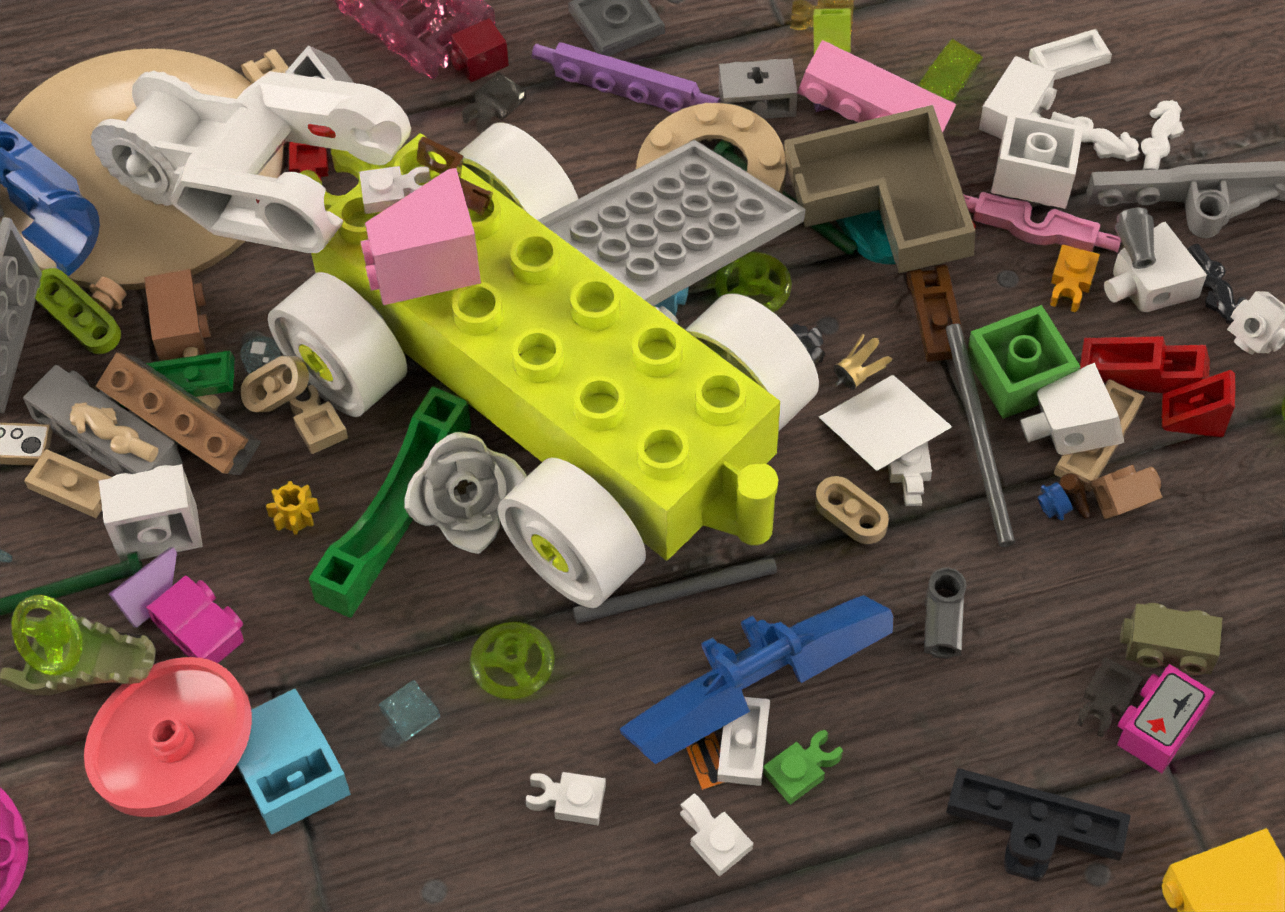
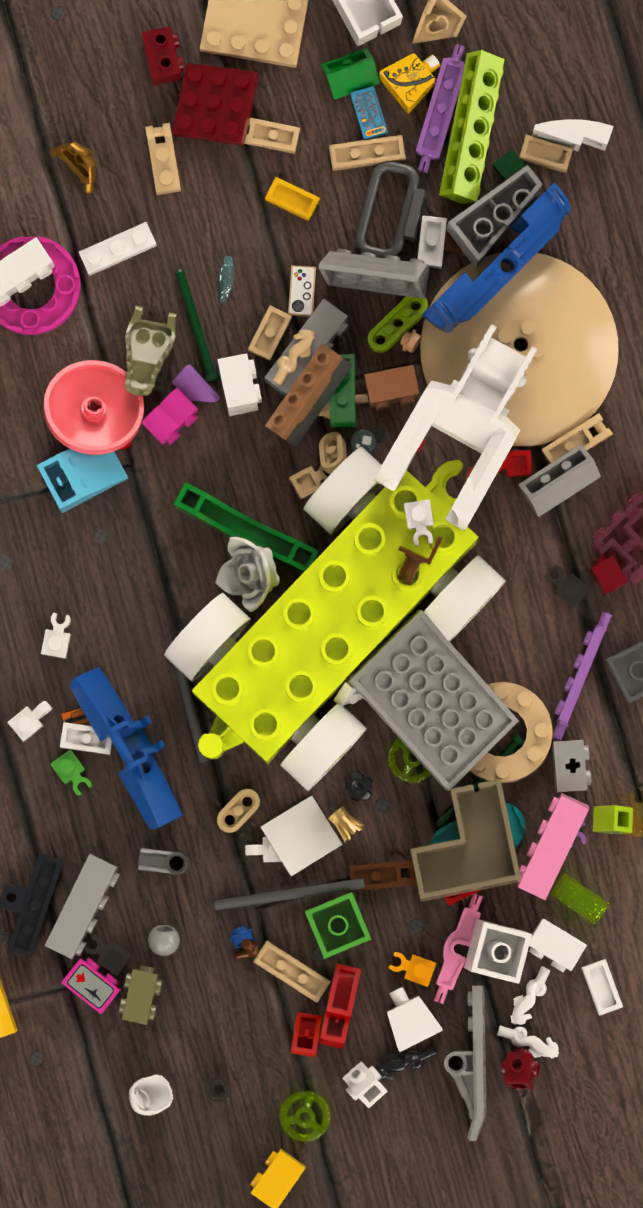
camera: 90 degrees right, 25 degrees up
(50, 633) = (158, 334): clear neon green piece -> none
(292, 507) = (248, 476): yellow gear -> none
(409, 710) = (114, 544): clear light blue tile -> none
(422, 243) = (362, 543): bright pink slope -> none
(511, 642) = (145, 595): clear neon green piece -> none
(1033, 737) = (81, 907): none -> light grey brick
(1074, 608) = (163, 940): none -> light grey piece
(1075, 414) = (297, 954): white torso -> none
(1126, 490) = (243, 982): medium nougat brick -> none
(1137, 235) = (423, 1008): dark grey cone -> none
(1205, 134) = (520, 1069): none -> dark red brick

